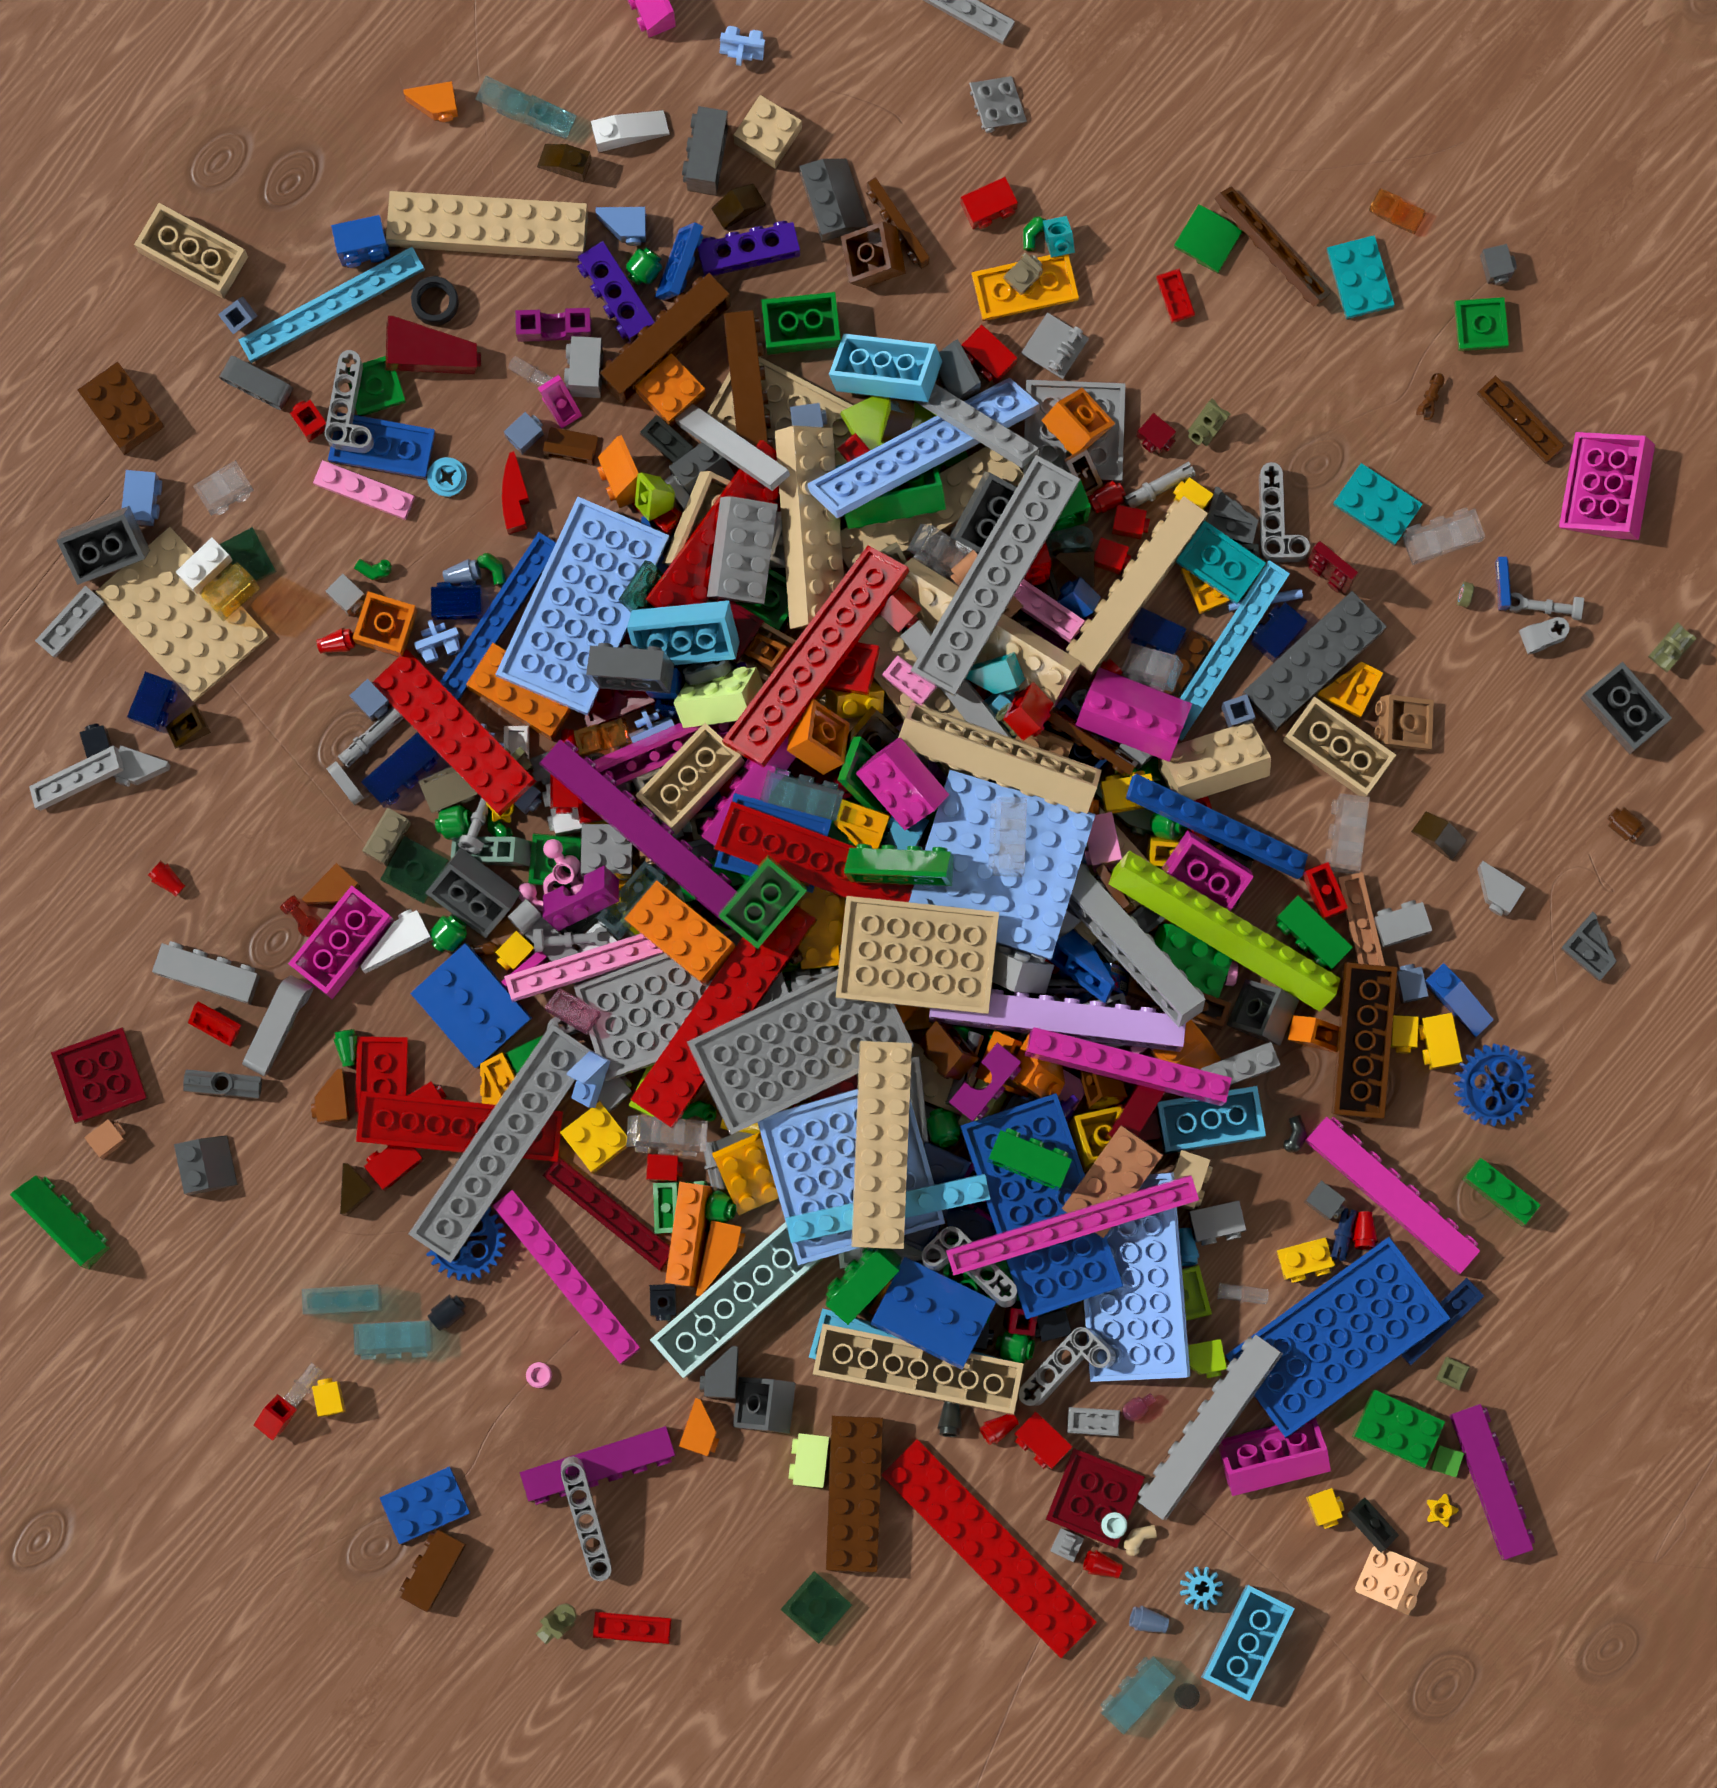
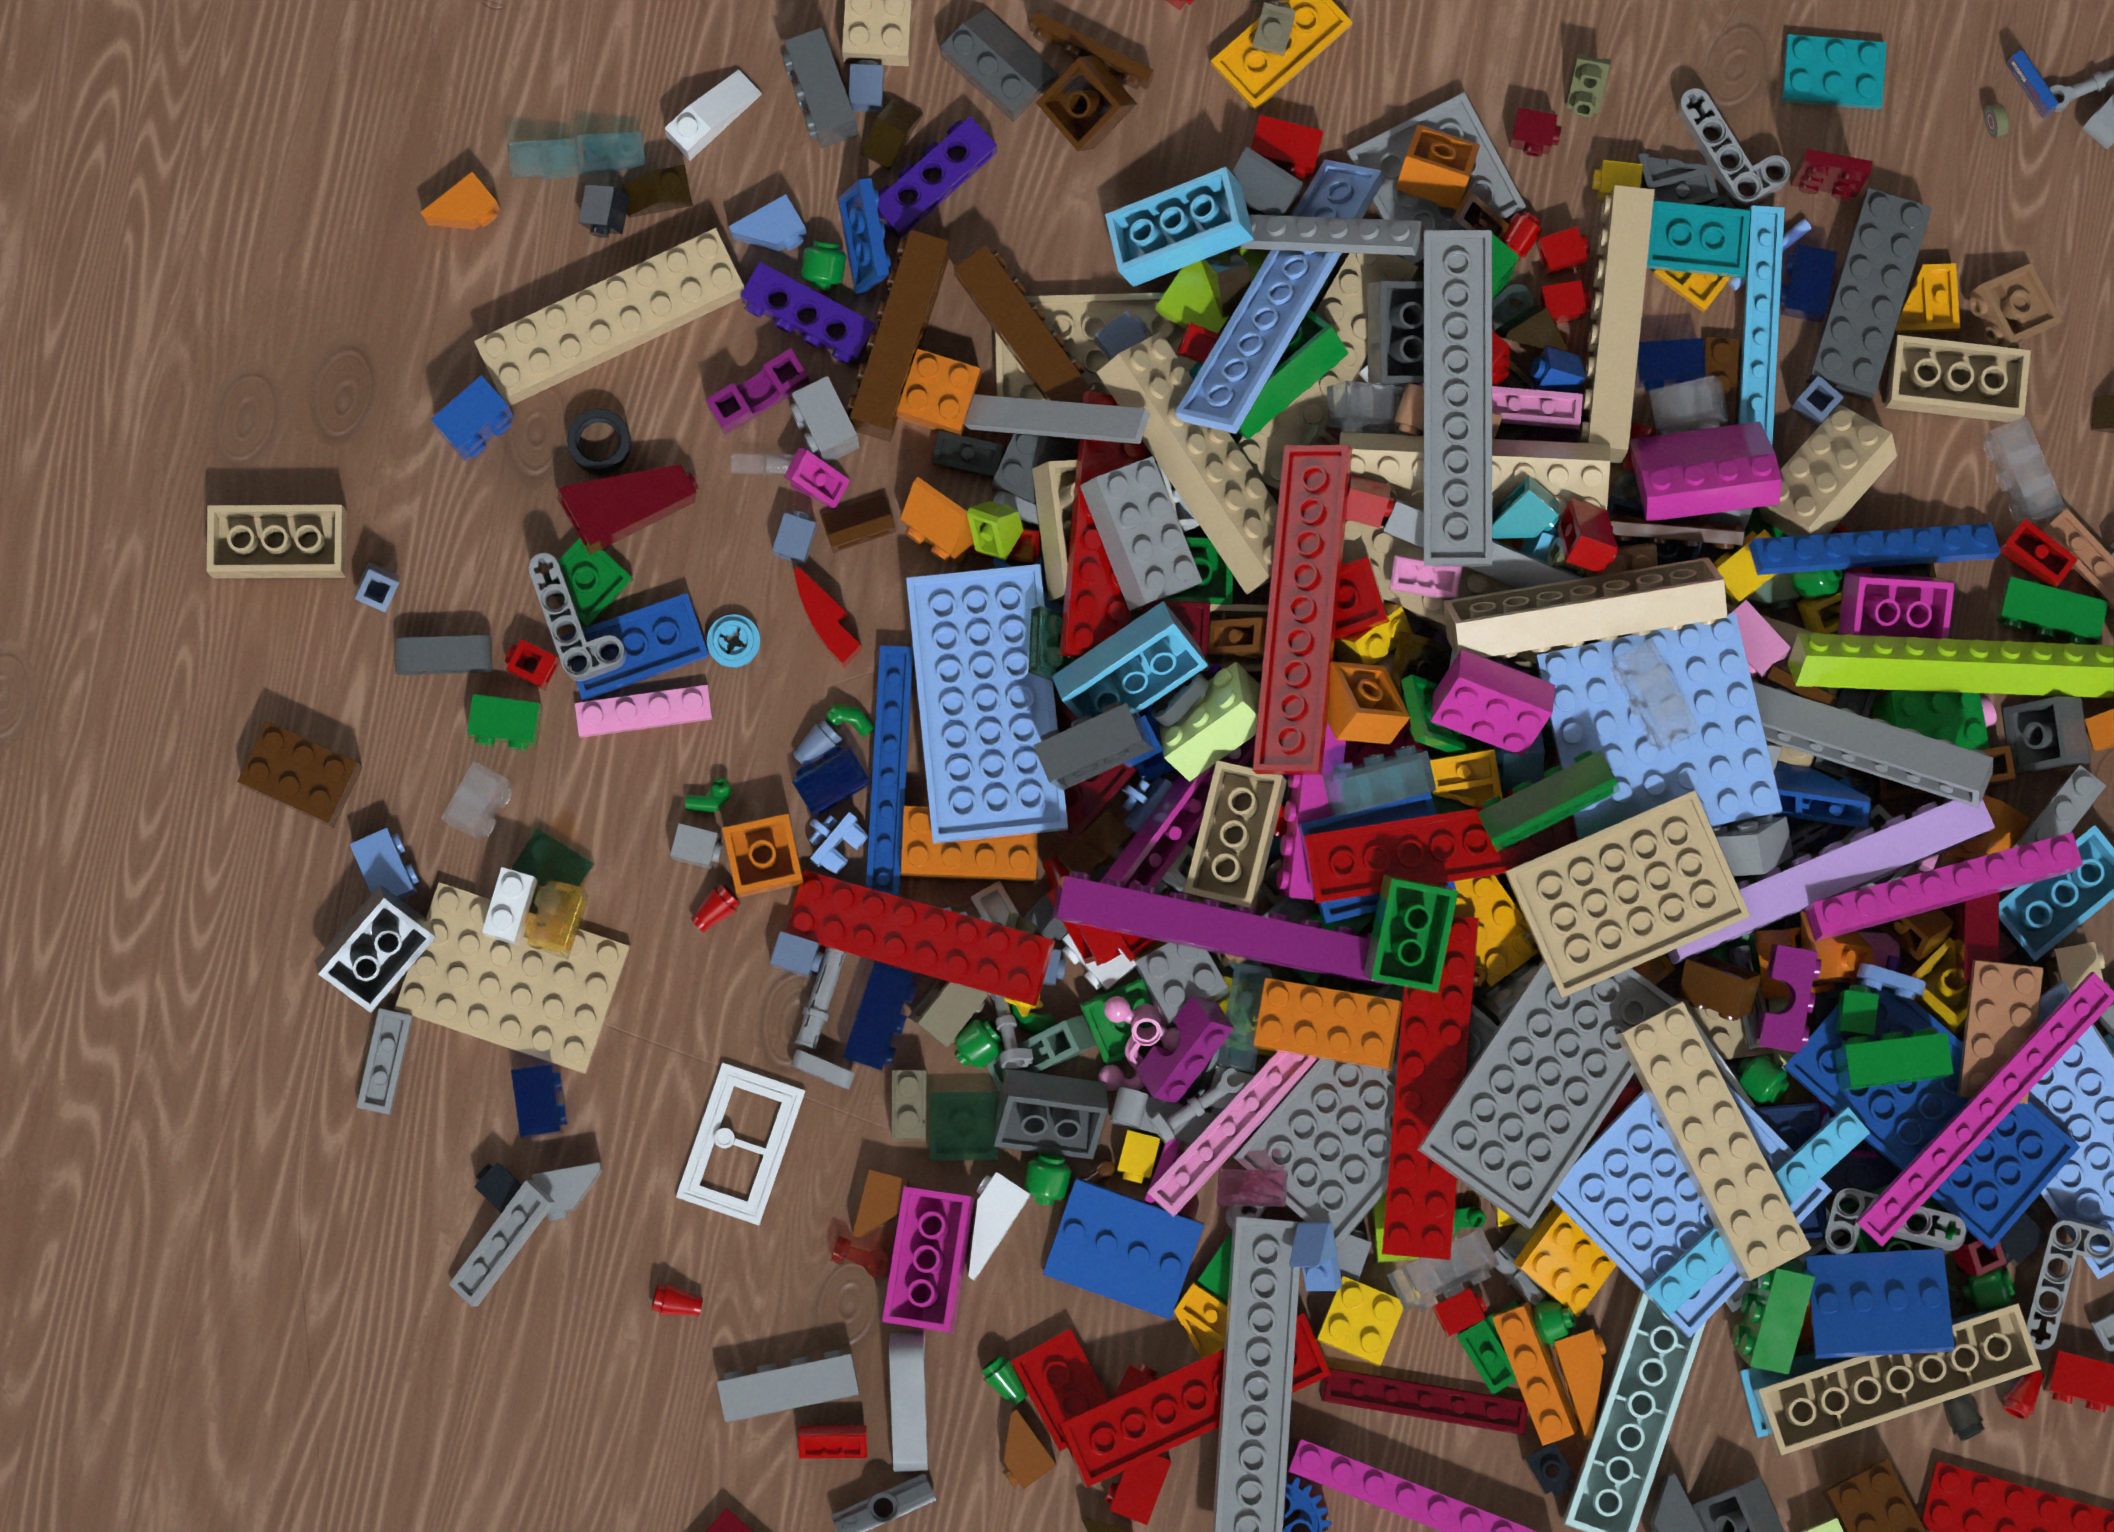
camera: 30 degrees left, 0 degrees up
(187, 727) = (597, 1108): dark brown slope -> none
(251, 784) = (724, 1138): none -> white door
(270, 446) = (504, 721): none -> green brick
(331, 304) = (479, 513): medium azure plate -> none
(522, 153) = (603, 210): none -> black brick
(738, 166) = (866, 86): none -> sand blue brick
(801, 323) = (1047, 229): green brick -> none
(1026, 1116) = (1856, 1012): none -> green brick
(1055, 345) = (1355, 93): light grey hinge -> none
(1066, 1116) = (1878, 977): none -> medium blue plate
(1149, 491) = (1565, 200): light grey pin -> none
(1443, 535) = (1931, 66): clear brick -> none

